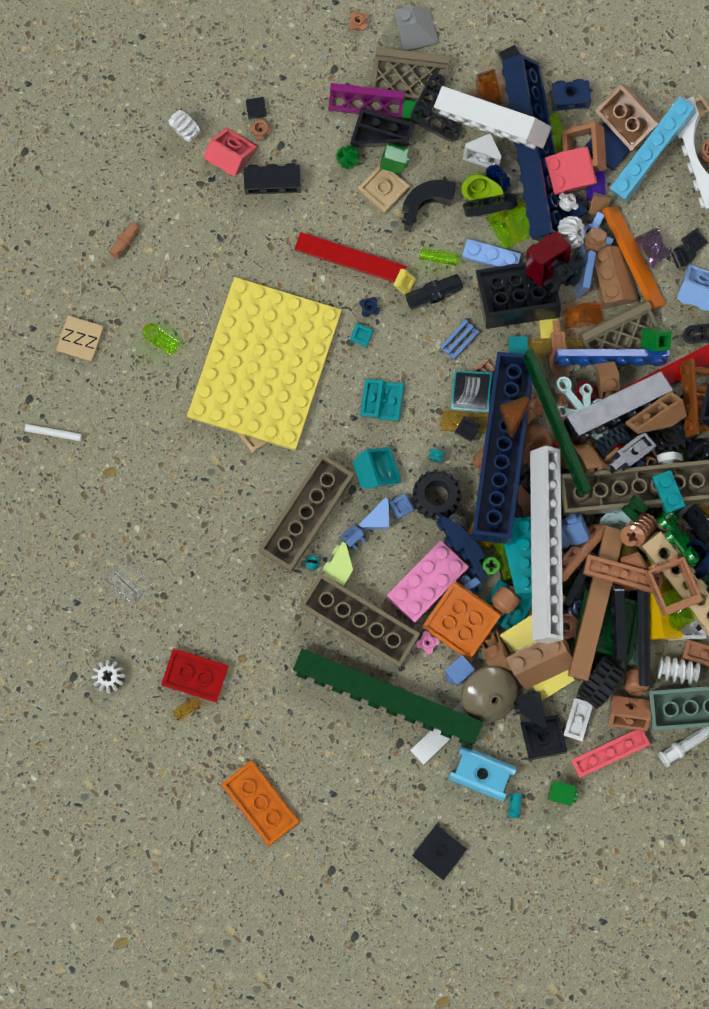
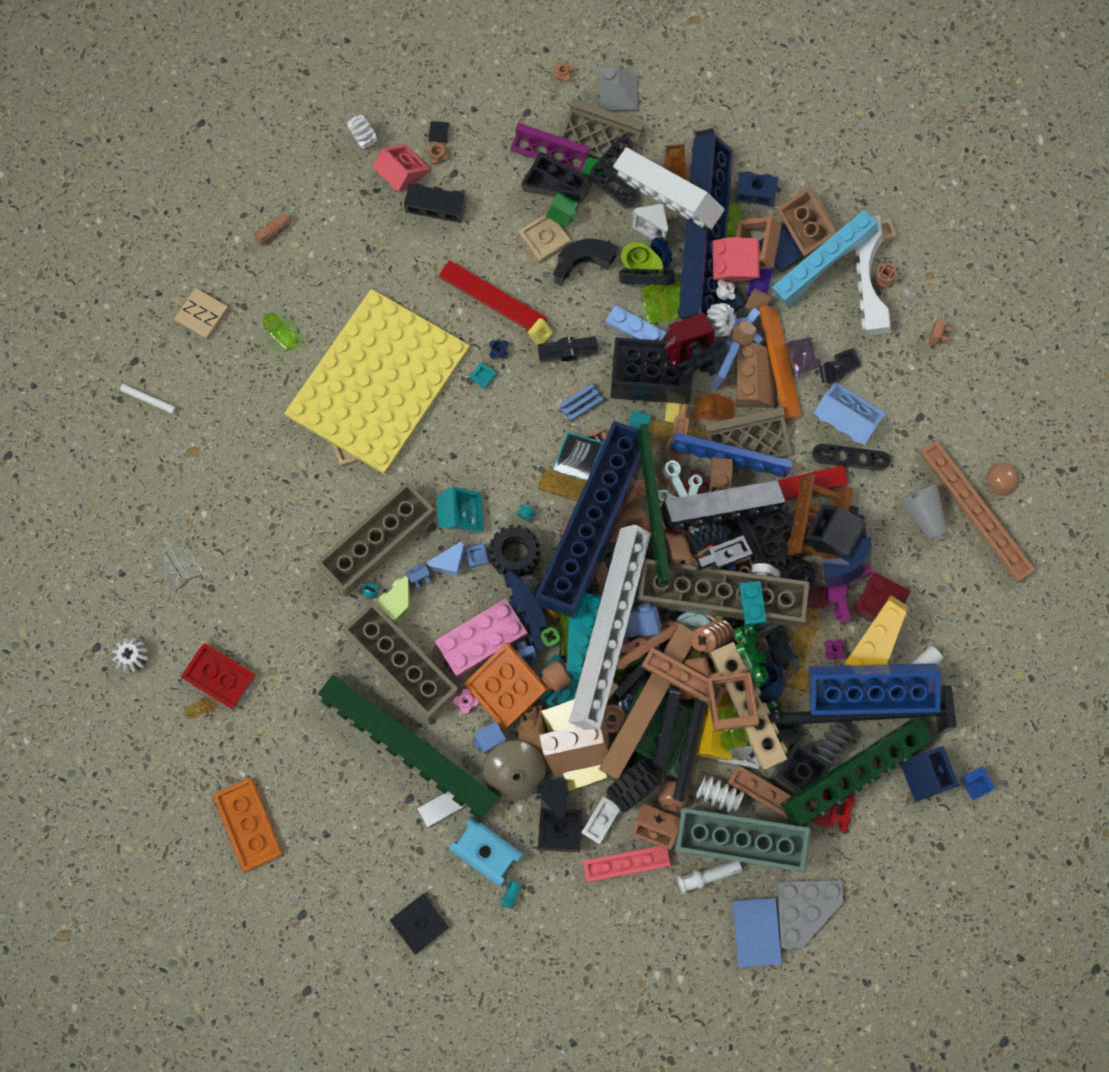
camera: 15 degrees right, 5 degrees down
(347, 157) = (516, 198): green gear -> none
(382, 400) = (486, 444): teal slope -> none
(438, 256) = (581, 316): clear neon green pin -> none
(467, 429) = (564, 493): black tile -> none
(513, 413) = (611, 485): clear orange slope -> none
(562, 793) = (564, 894): green brick -> none
(634, 508) = (715, 607): dark green wheel -> none
(656, 339) = (781, 447): green brick -> none
(659, 415) = (765, 523): medium nougat slope -> none

